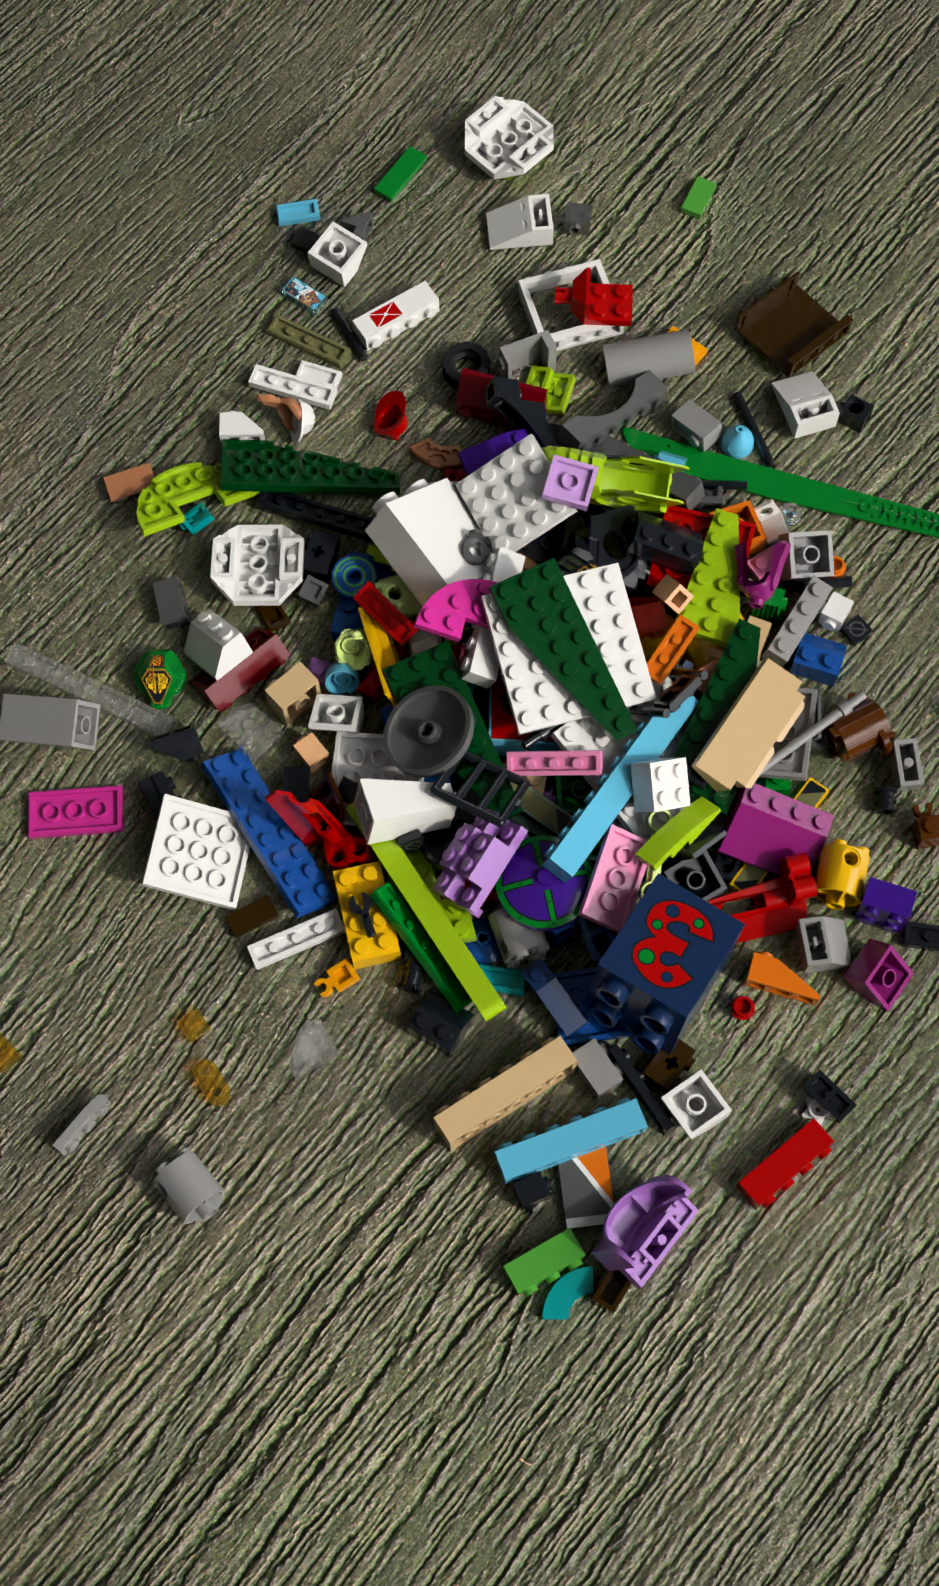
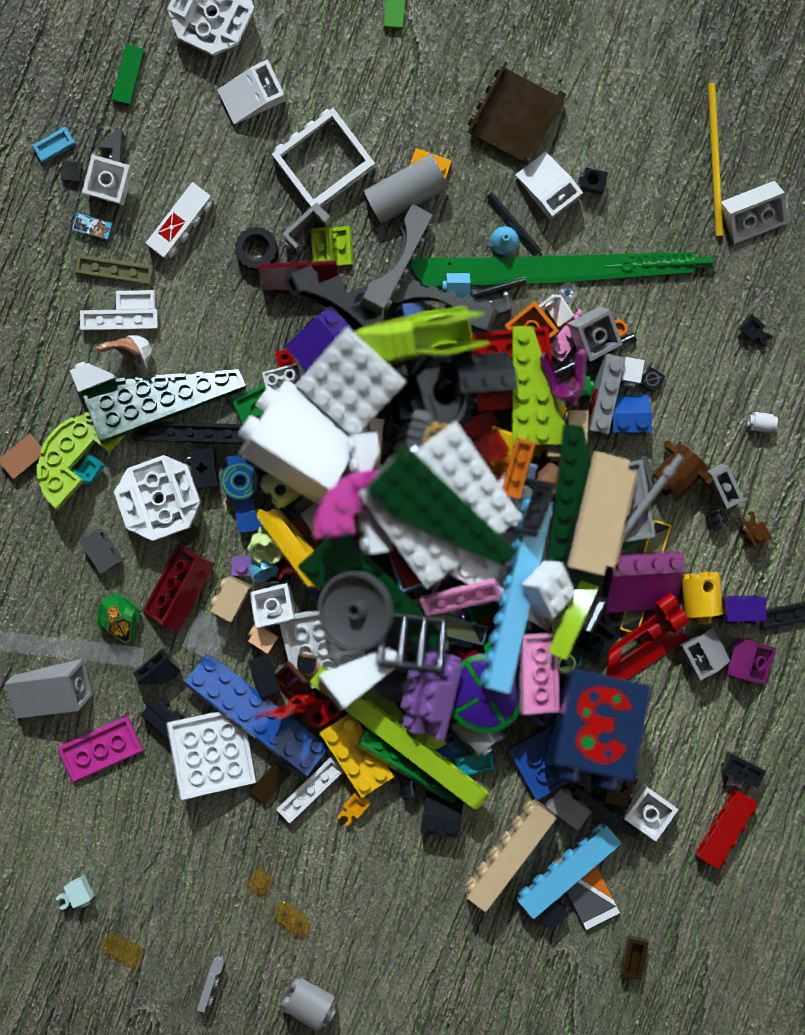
camera: 15 degrees left, 20 degrees up
(215, 644) = (153, 580): white slope -> none
(311, 1048) = (357, 871): clear slope -> none
(313, 590) = (211, 503): dark grey brick -> none
(349, 334) = (144, 249): black bar -> none
(364, 913) = (357, 761): black bar -> none
(385, 613) = (280, 511): red plate -> none
(391, 415) = (211, 320): red piece -> none
(412, 841) = (374, 691): black tile -> none
(436, 455) = (264, 340): nougat tile -> none
(486, 543) = (341, 430): dark grey piece -> none
(544, 1263) = (579, 960): bright green brick -> none
(553, 997) = (519, 769): dark blue slope -> none
(566, 1292) = (601, 972): teal tile -> none
(570, 482) = (393, 363): lavender tile -> none
(577, 218) = (298, 69): flat silver brick -> none
(597, 302) = (348, 154): red plate -> none
(638, 1235) = (643, 917): medium lavender piece -> none
(672, 594) = (503, 418): light nougat brick -> none
(696, 425) = (467, 240): light grey brick -> none
(742, 1008) = (659, 721): red plate -> none
(776, 978) = (674, 691): orange slope -> none

